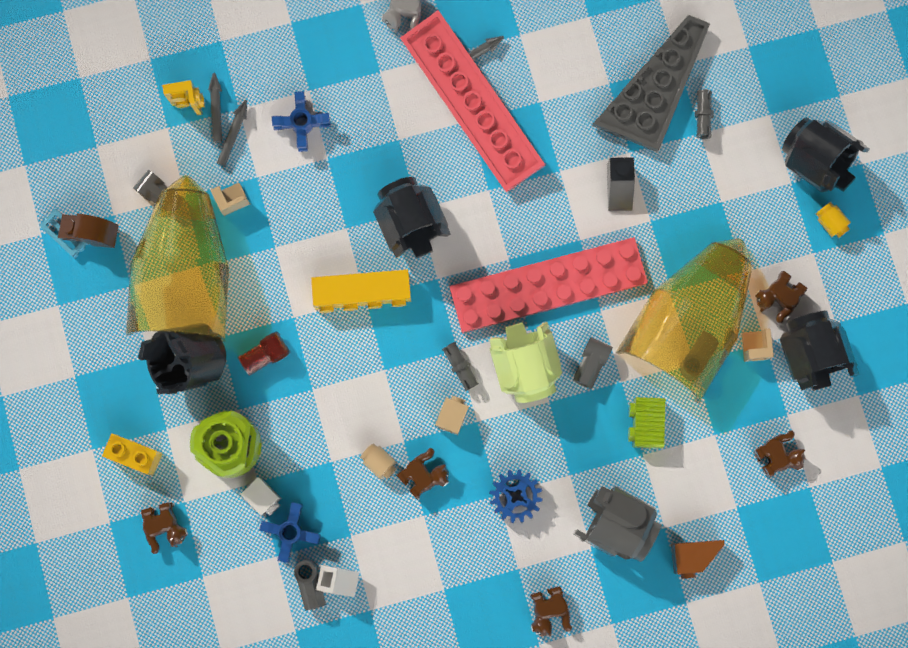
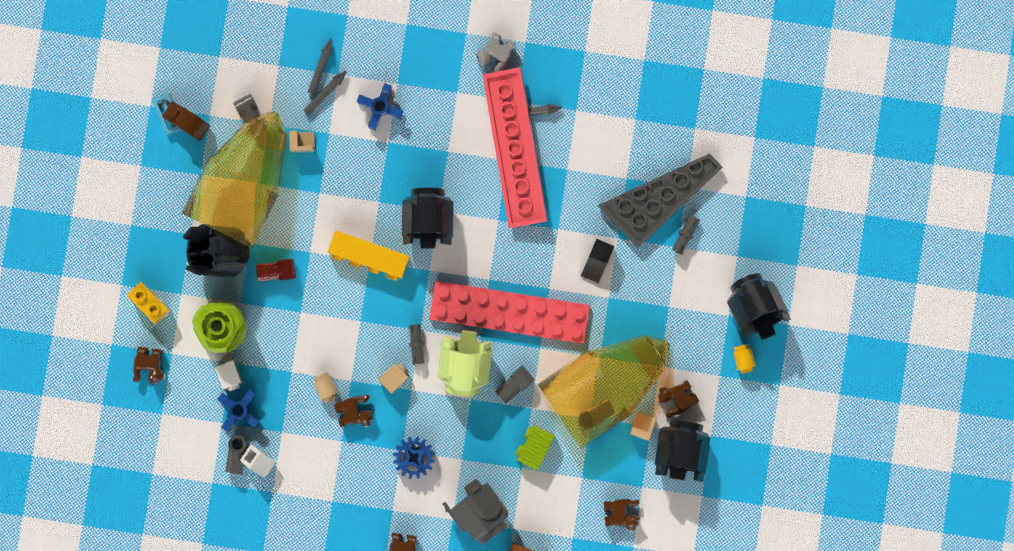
camera: 25 degrees right, 5 degrees up
(183, 95) = (301, 49): yellow bracket -> none

